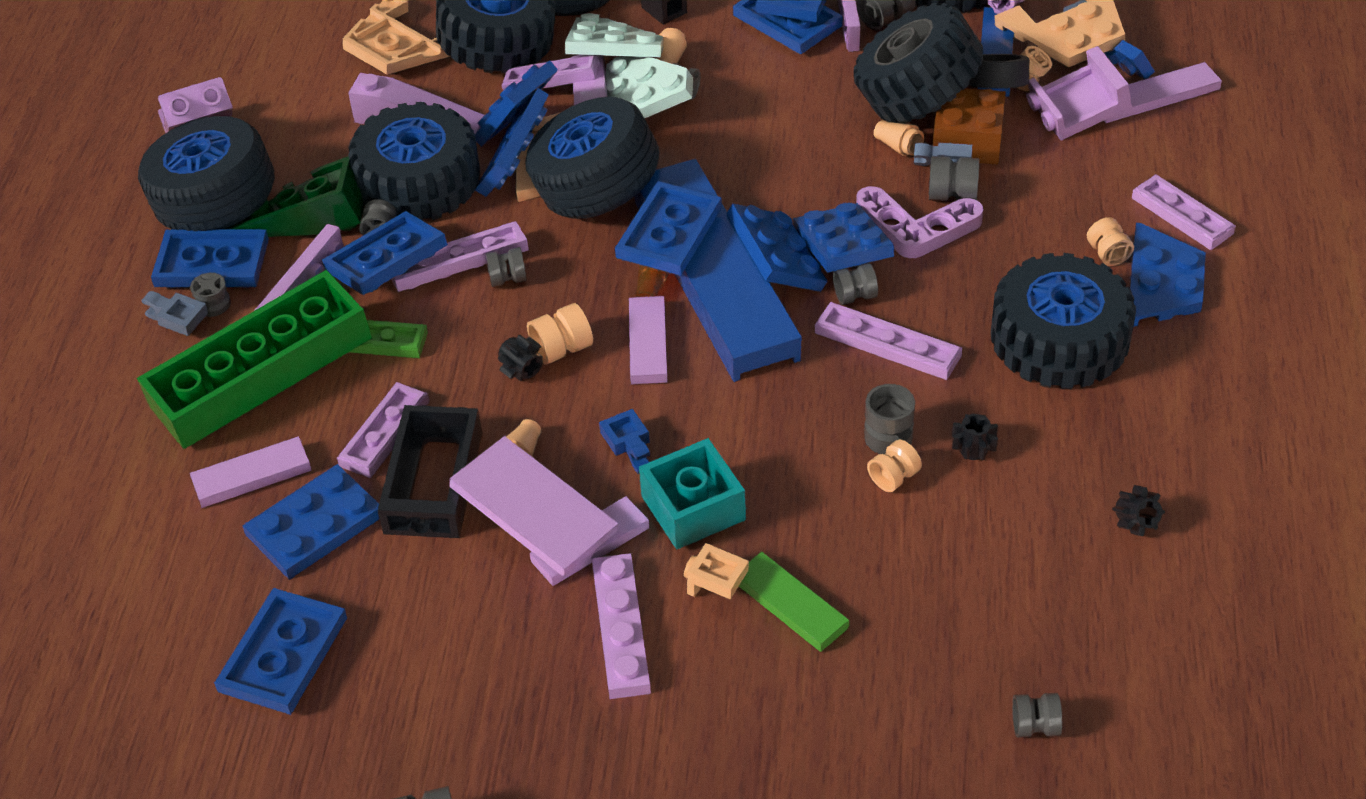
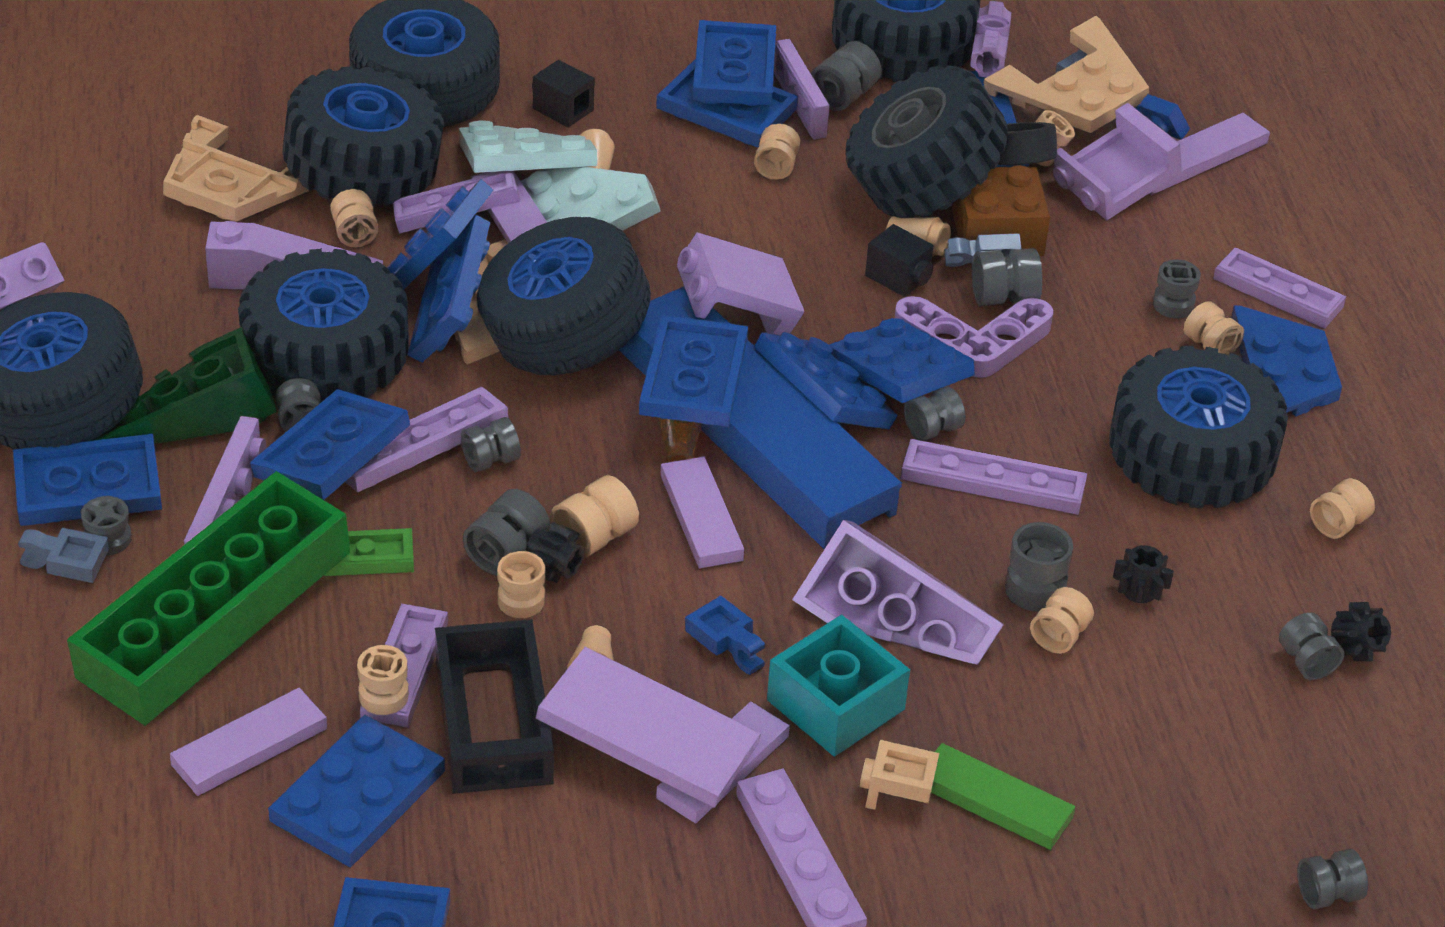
camera: 20 degrees left, 5 degrees down
(352, 440) = (383, 679): none -> light nougat wheel
(472, 80) = (354, 218): none -> light nougat wheel
(482, 339) = (504, 529): none -> dark grey wheel
(487, 379) = (521, 584): none -> light nougat wheel
(735, 159) = (740, 278): none -> lavender panel
(760, 423) = (894, 598): none -> lavender wedge
(810, 59) = (777, 151): none -> light nougat wheel
(874, 156) = (899, 260): none -> black brick
(1092, 202) = (1176, 288): none -> dark grey wheel
(1093, 517) = (1311, 646): none -> dark grey wheel
(1166, 402) = (1342, 508): none -> light nougat wheel

